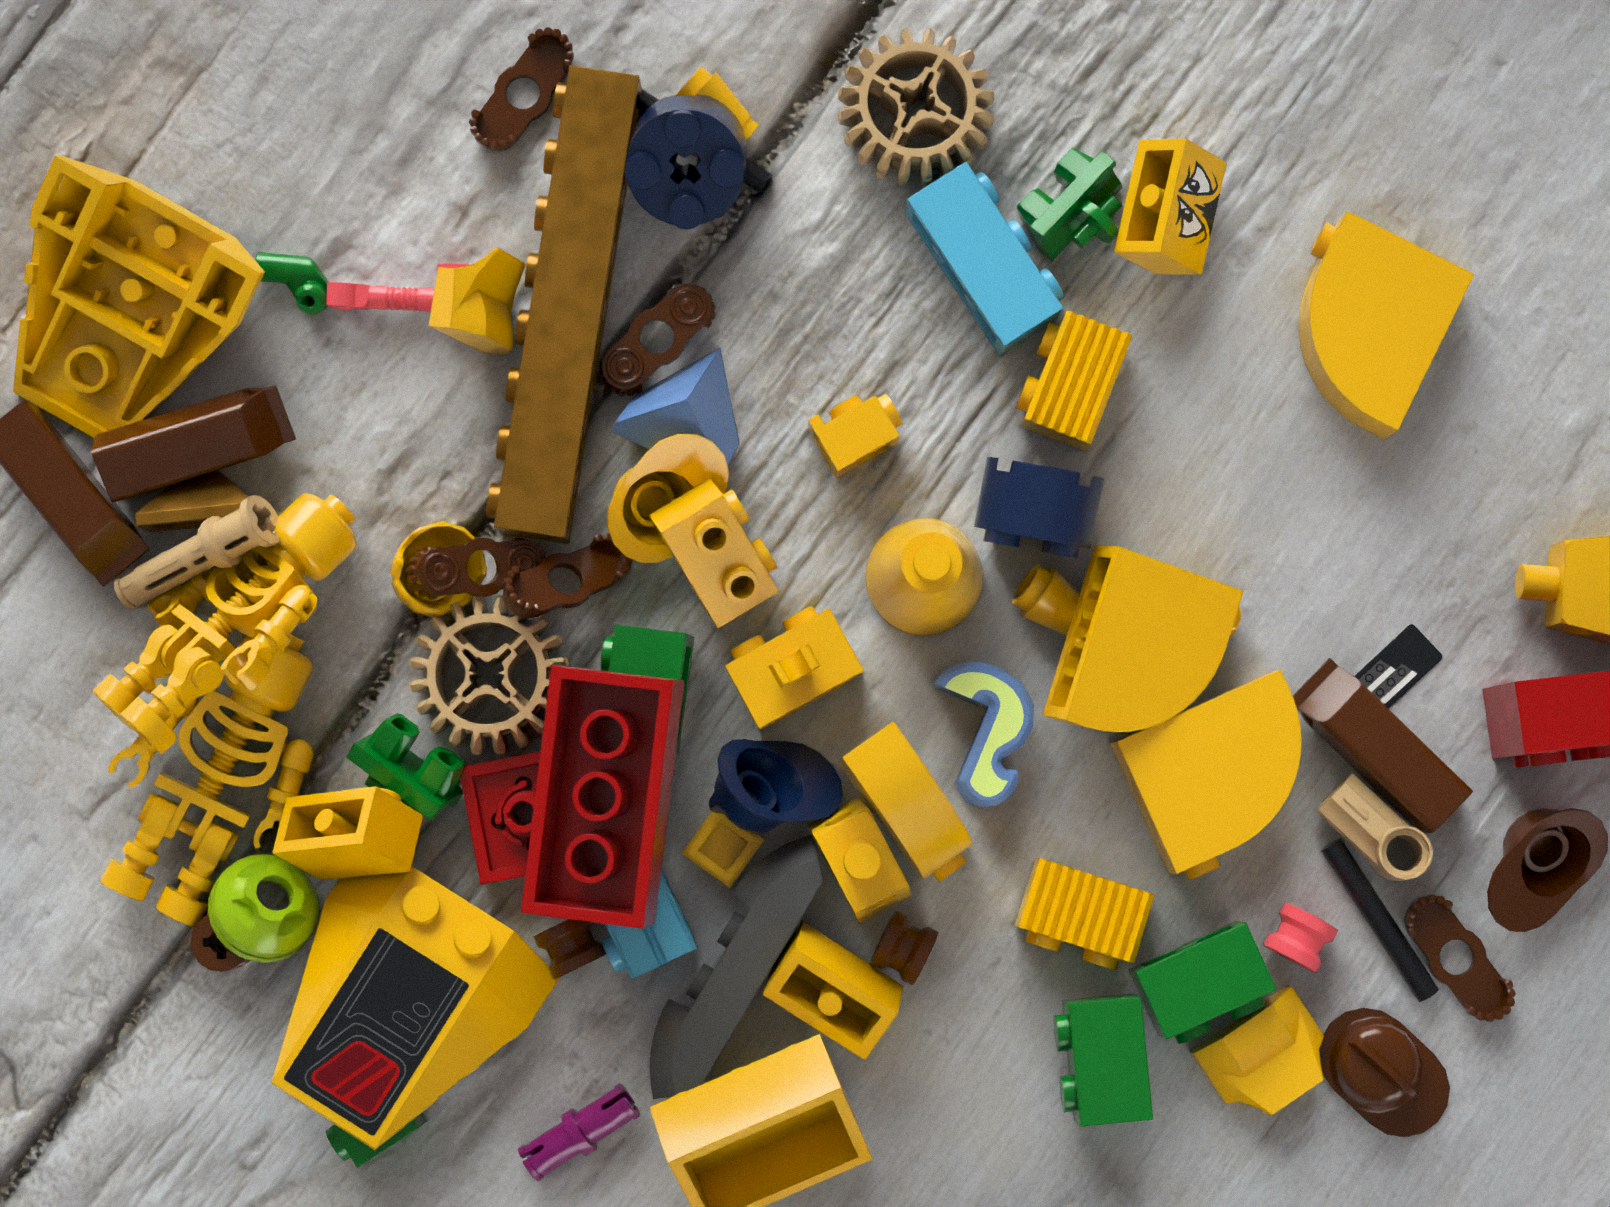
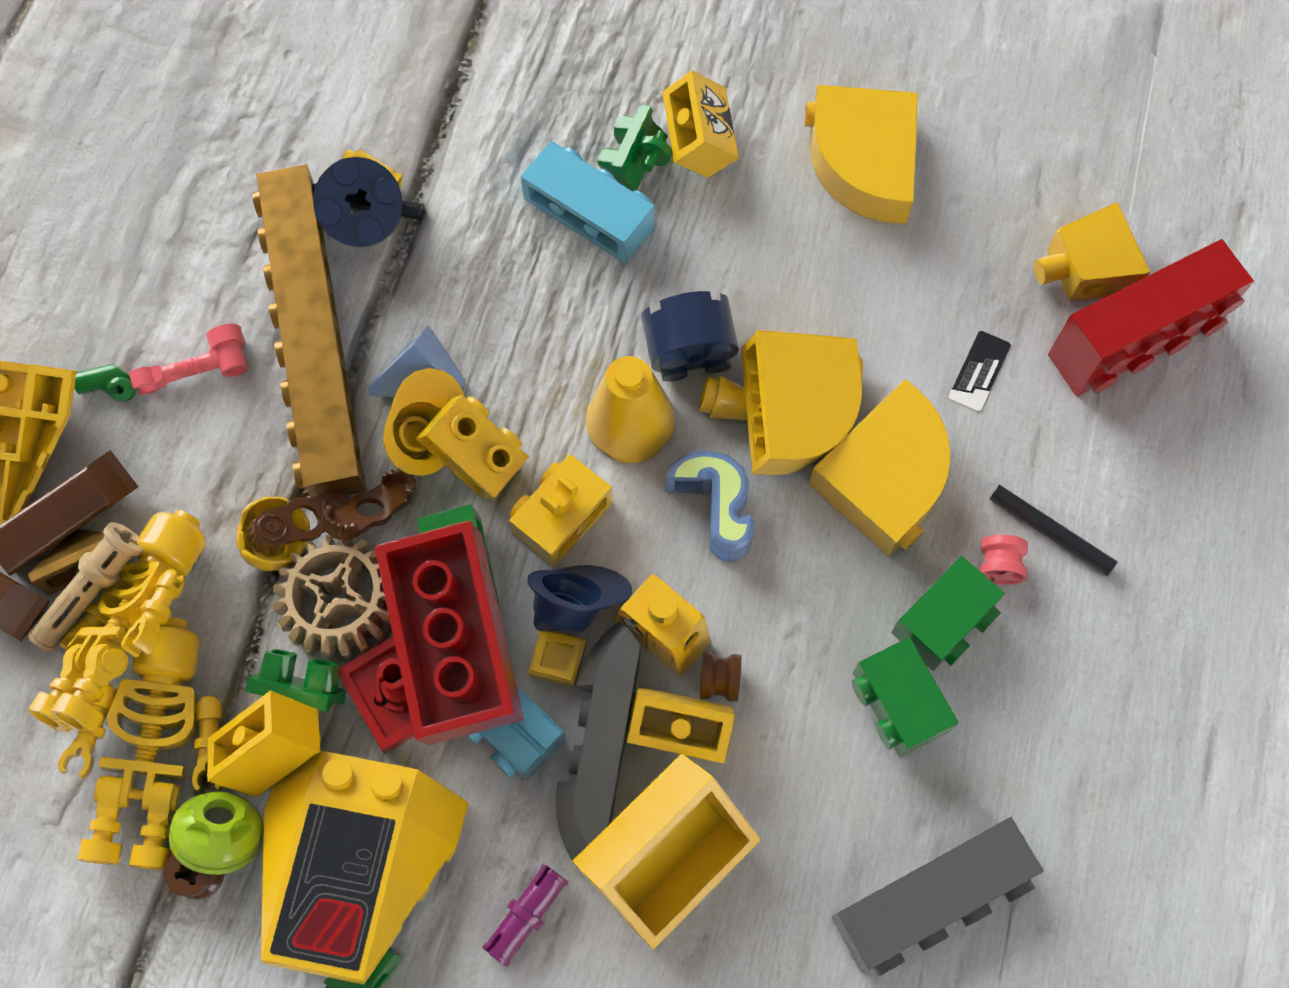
camera: 15 degrees left, 15 degrees down
(478, 301) = (240, 340): yellow slope -> none
(546, 63) = (225, 237): reddish brown piece -> none
(569, 946) = (466, 770): reddish brown wheel -> none
(630, 365) = (367, 353): reddish brown piece -> none
(856, 432) = (543, 340): yellow brick -> none
(897, 94) = (509, 116): tan gear -> none
(908, 803) = (677, 549): yellow brick -> none
(1074, 381) = (681, 250): yellow brick -> none
(1083, 912) = (841, 600): yellow brick -> none
(1265, 1055) = (1016, 654): yellow slope -> none
(1371, 826) = (1018, 467): tan piece -> none
(1380, 747) = (1000, 411): reddish brown piece -> none
(1384, 1072) = (1107, 636): reddish brown piece -> none
(1481, 986) = (1145, 549): reddish brown piece -> none
(1544, 865) = (1150, 441): reddish brown piece -> none

